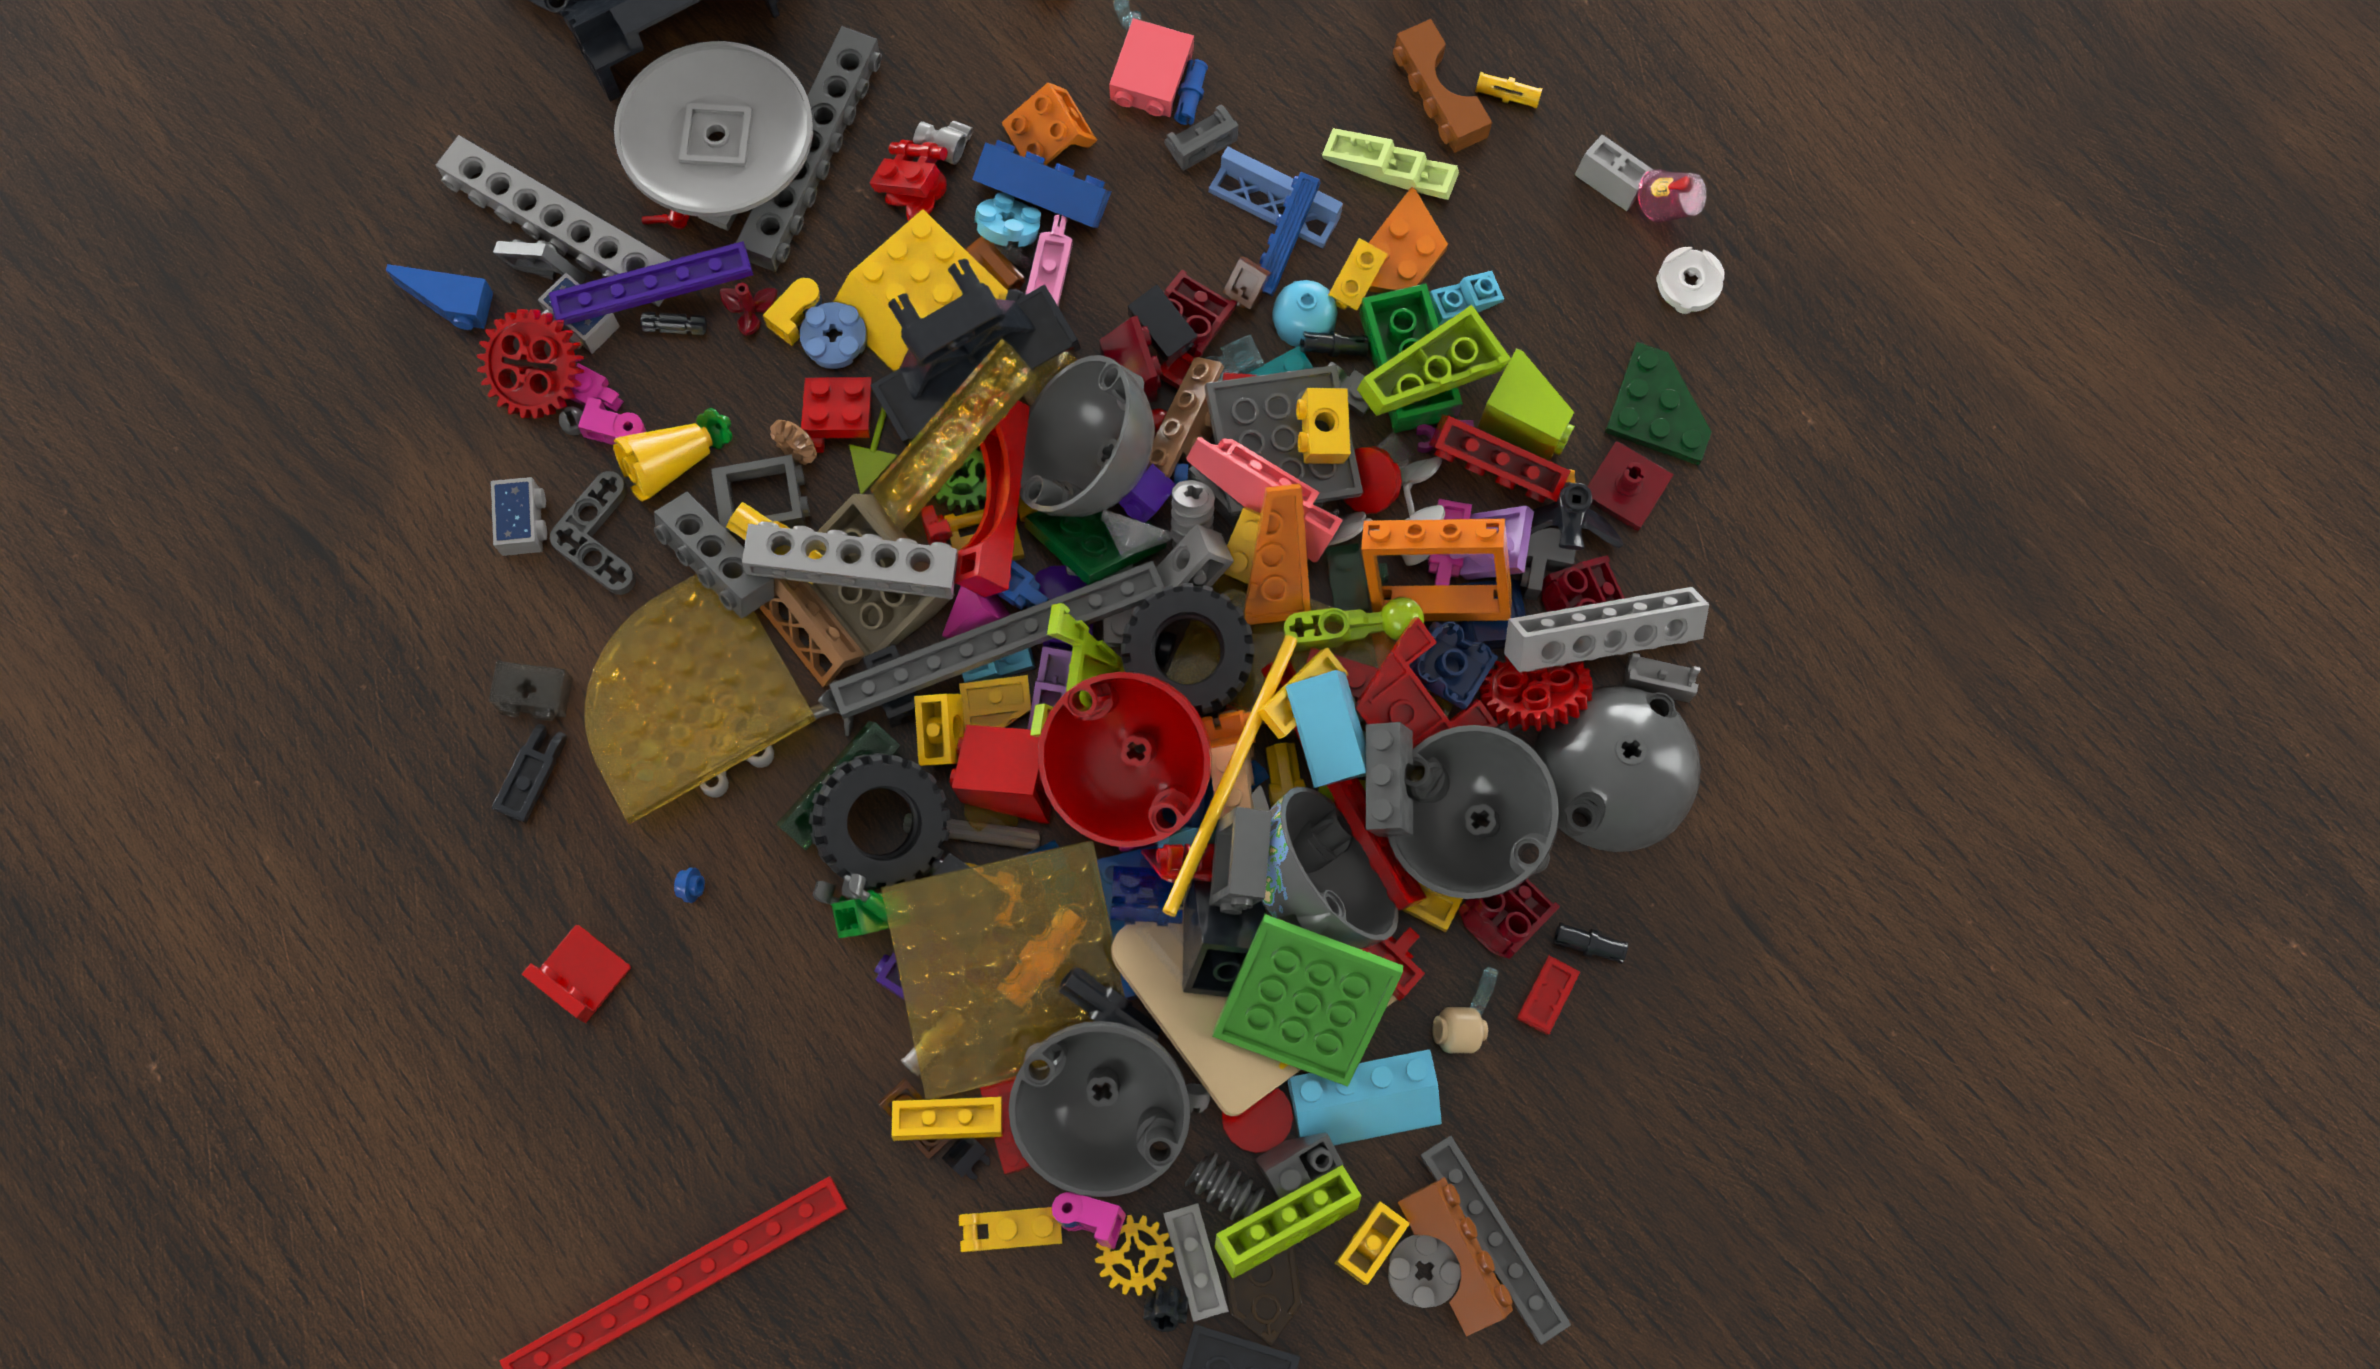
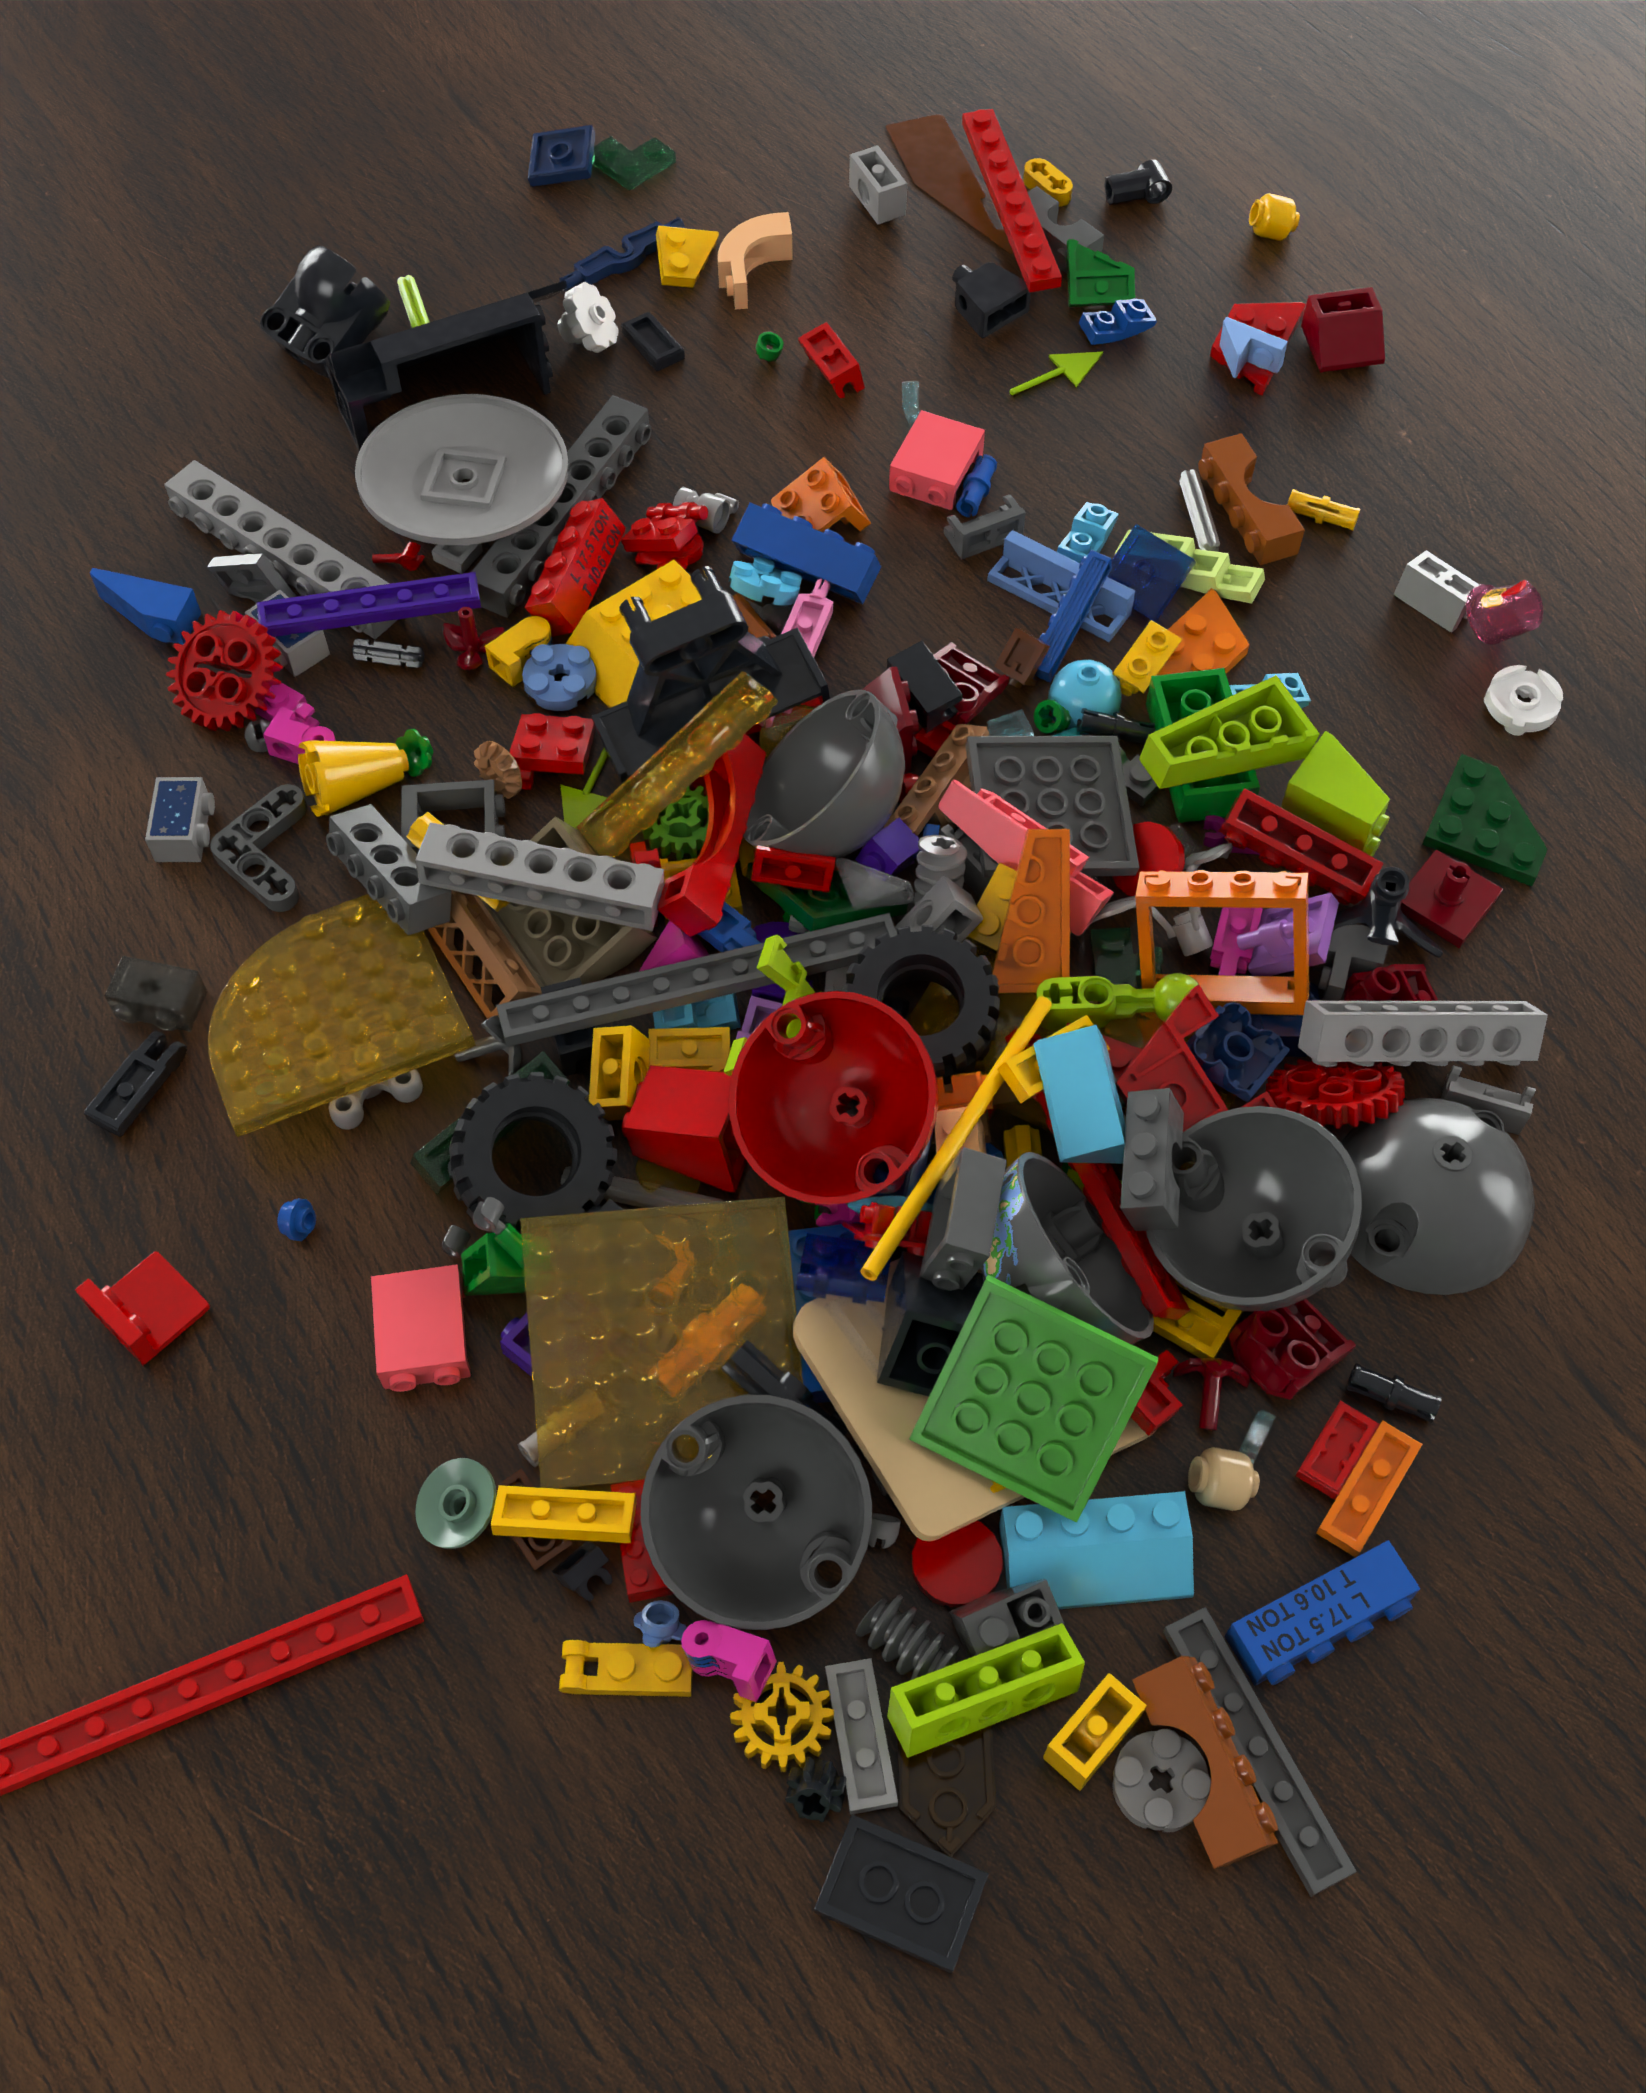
camera: 10 degrees right, 15 degrees down
(807, 970) = (419, 1328): none -> coral panel
(833, 220) = (576, 566): none -> red brick
(846, 1114) = (443, 1496): none -> sand green dish
(1028, 1184) = (659, 1623): none -> medium blue plate
(1065, 527) = (792, 869): none -> red slope
(1270, 339) = (1044, 721): none -> green bush
(1295, 137) = (1088, 532): none -> medium azure slope
(1332, 408) = (1107, 770): yellow brick -> none
(1353, 178) = (1151, 570): none -> clear blue plate
(1396, 102) = (1199, 511): none -> light grey axle
(1450, 943) = (1213, 1372): none -> dark red plant
(1540, 1130) = (1322, 1613): none -> blue brick
(1574, 1025) = (1369, 1489): none -> orange plate

